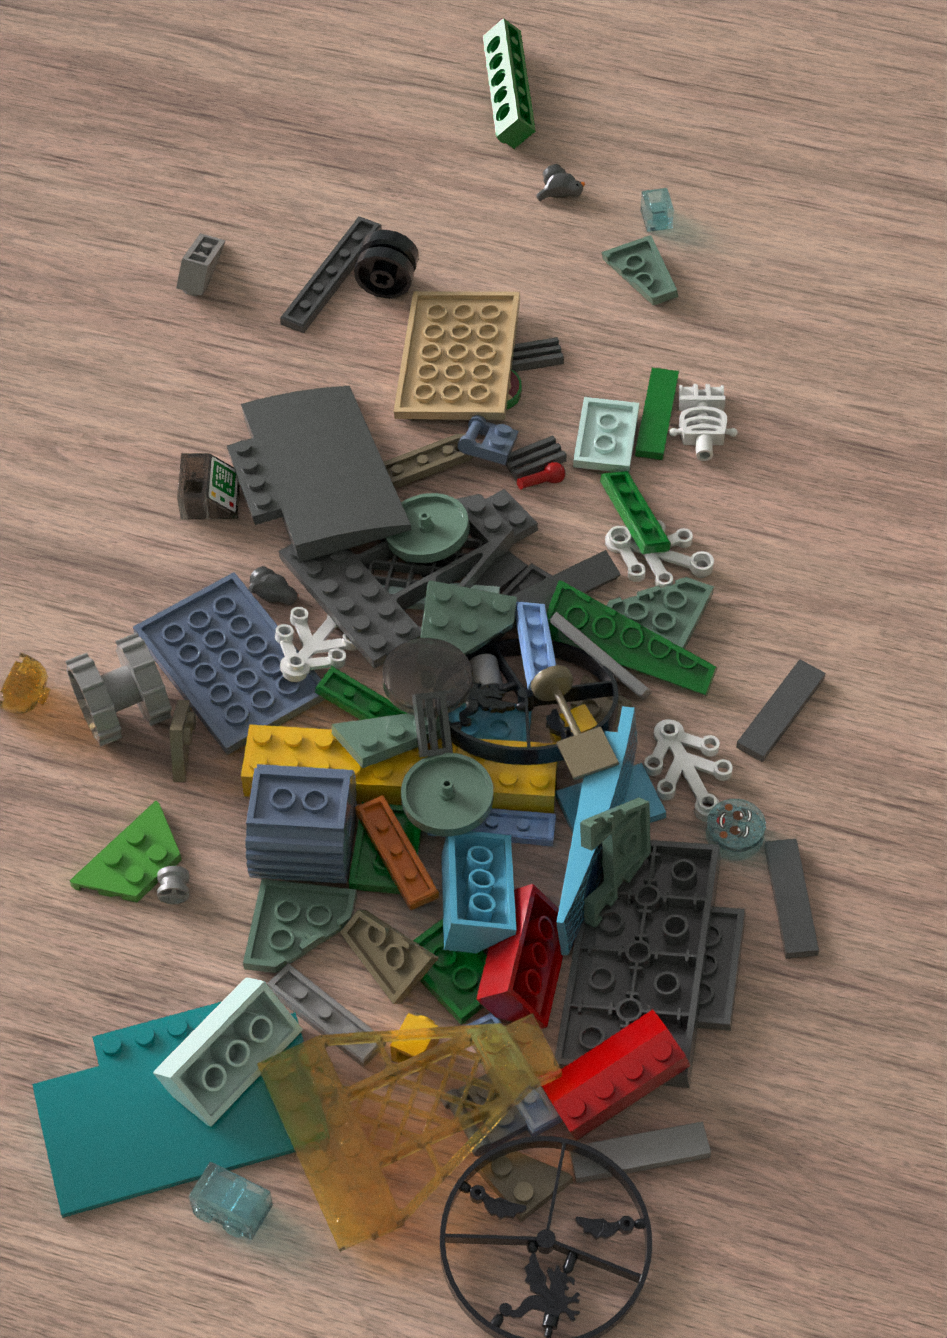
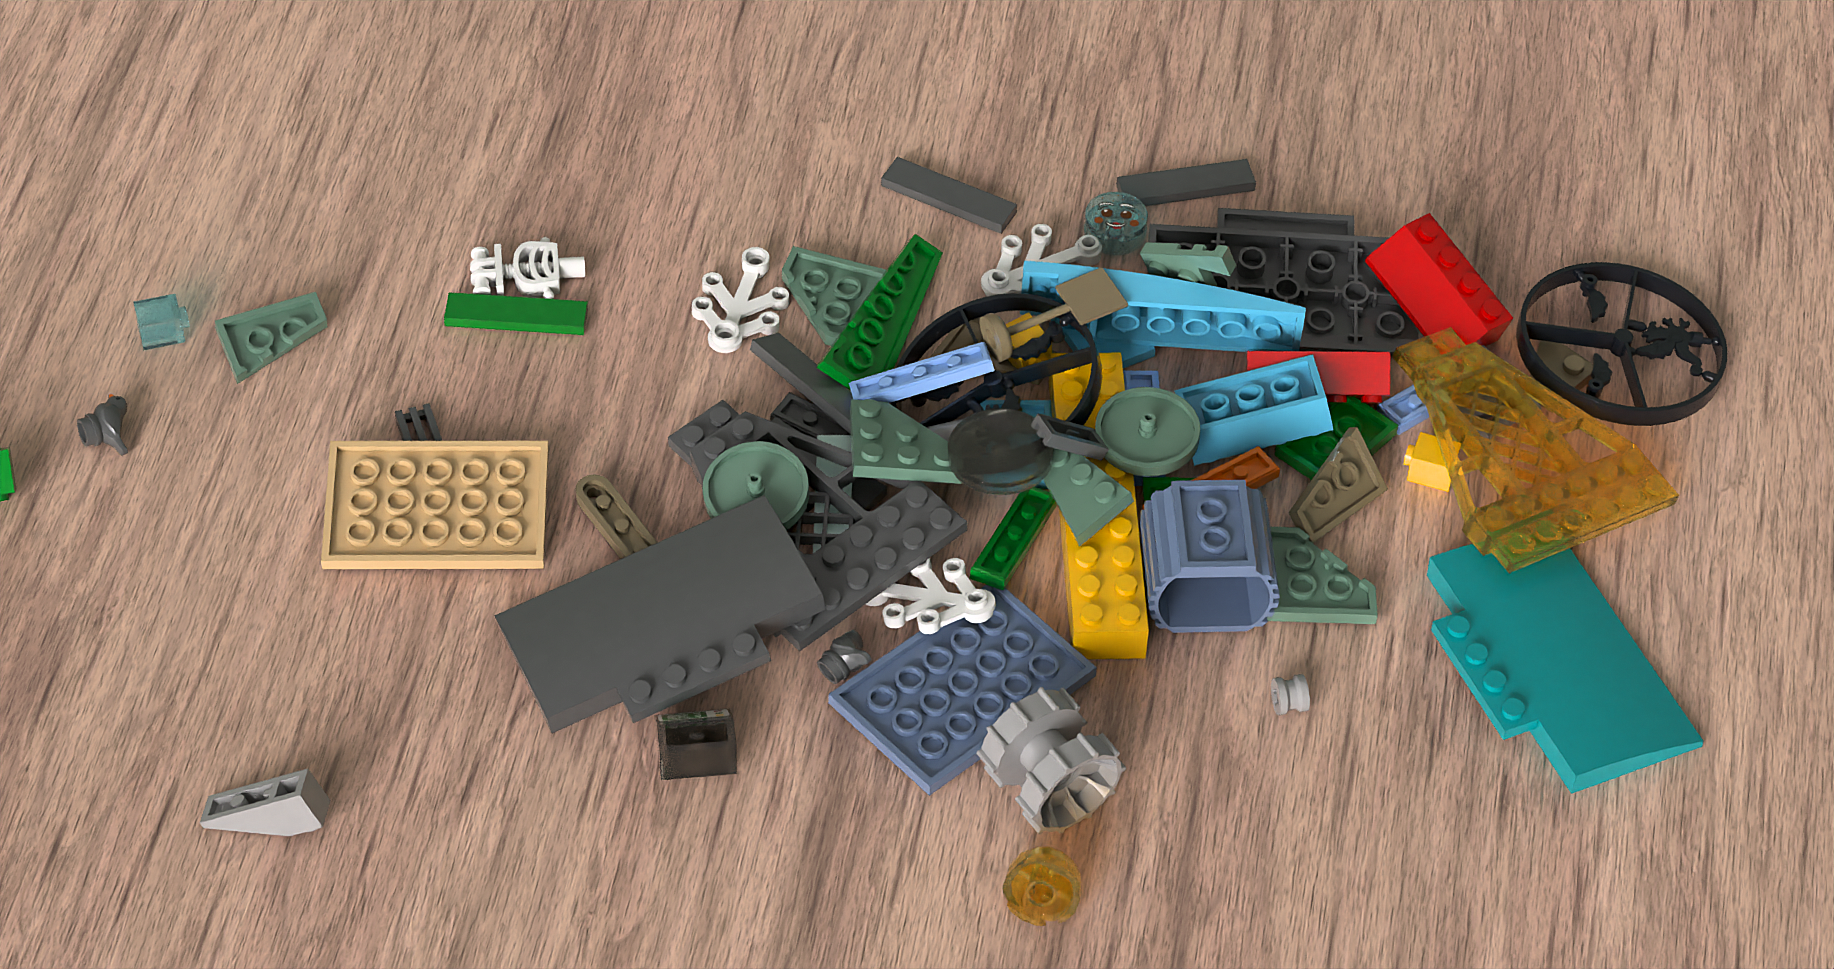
camera: 100 degrees left, 5 degrees down
(132, 859) = (1255, 745): bright green wing -> none
(181, 738) = (1102, 705): dark tan wing -> none
(224, 1050) = (1497, 597): light aqua slope -> none
(230, 1201) = (1651, 593): clear light blue brick -> none
(321, 1011) = (1413, 547): light grey tile -> none
(328, 277) = (275, 664): dark grey tile -> none
(386, 264) = (285, 580): black wheel -> none
(496, 445) = (588, 457): sand blue plate -> none
(532, 455) = (575, 415): dark grey tile -> none
(552, 473) = (621, 407): red bar -> none
(600, 656) = (911, 334): light grey tile -> none
(606, 435) = (560, 355): light aqua plate -> none
(635, 512) = (687, 319): green tile -> none
(645, 1151) = (1494, 269): light grey tile -> none

